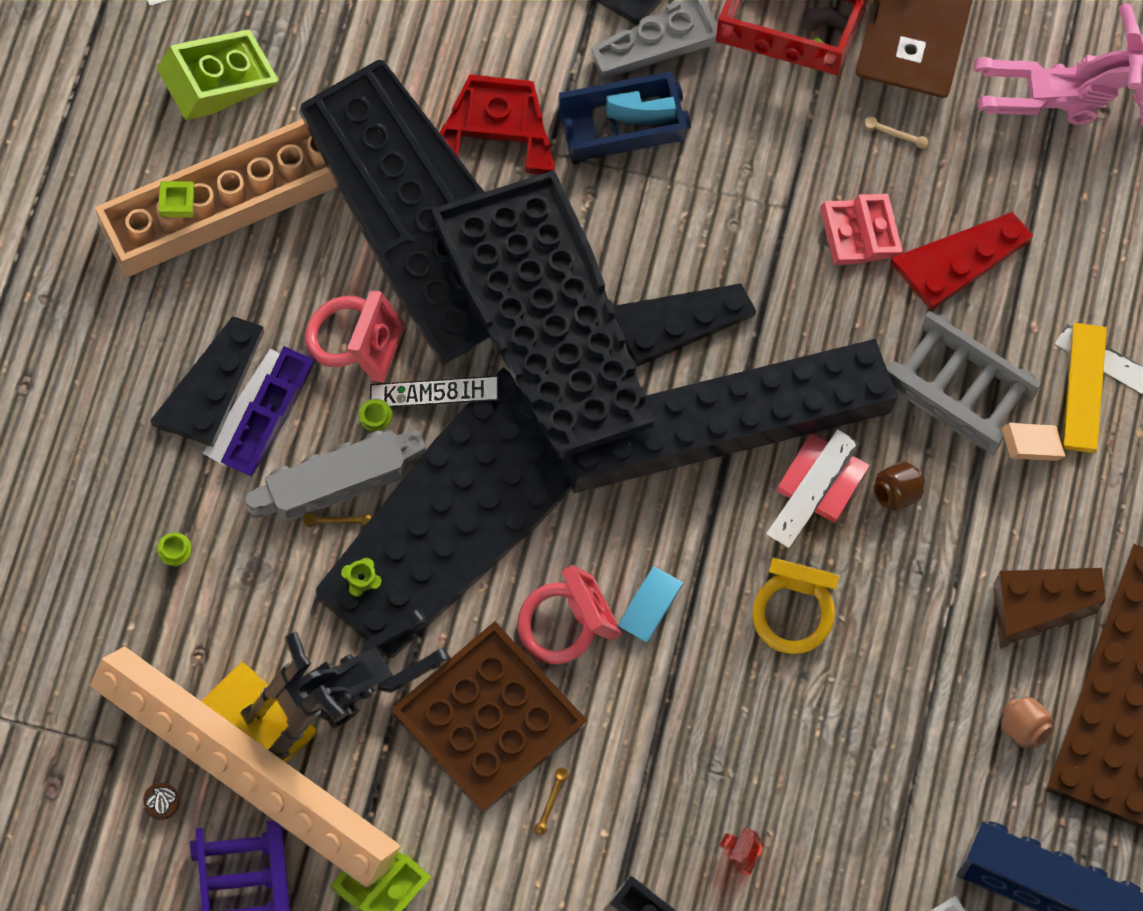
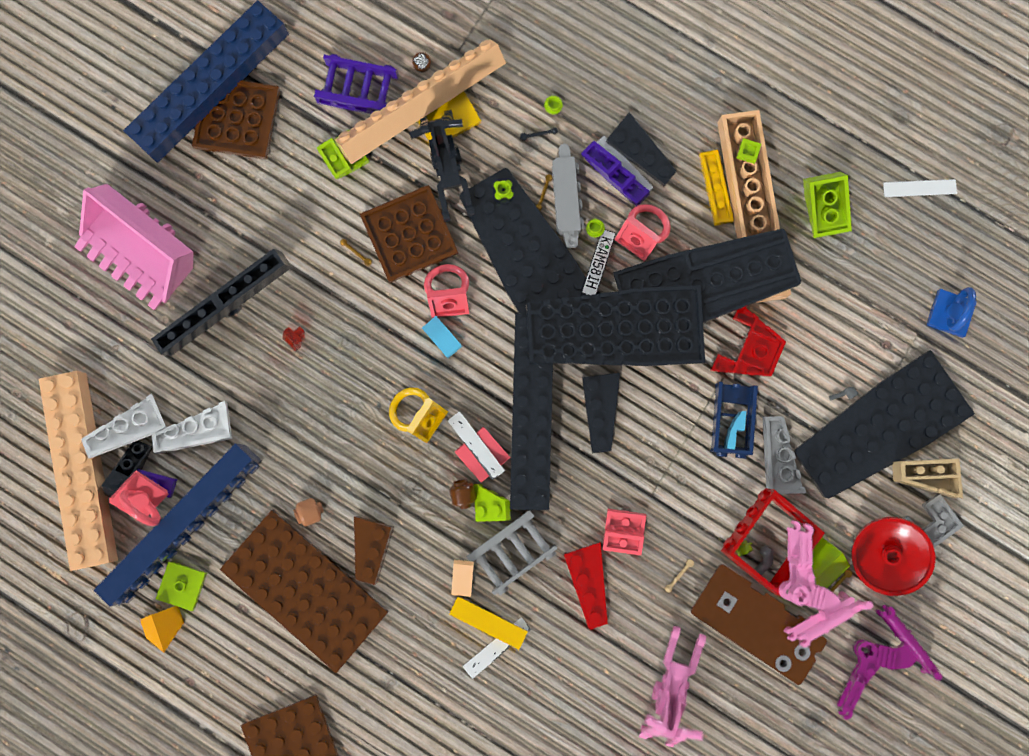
camera: 115 degrees right, 15 degrees up
(240, 249) = (716, 187): none -> yellow tile
(246, 582) = (524, 136): none -> black hinge
(902, 433) = (490, 505): none -> lime wing

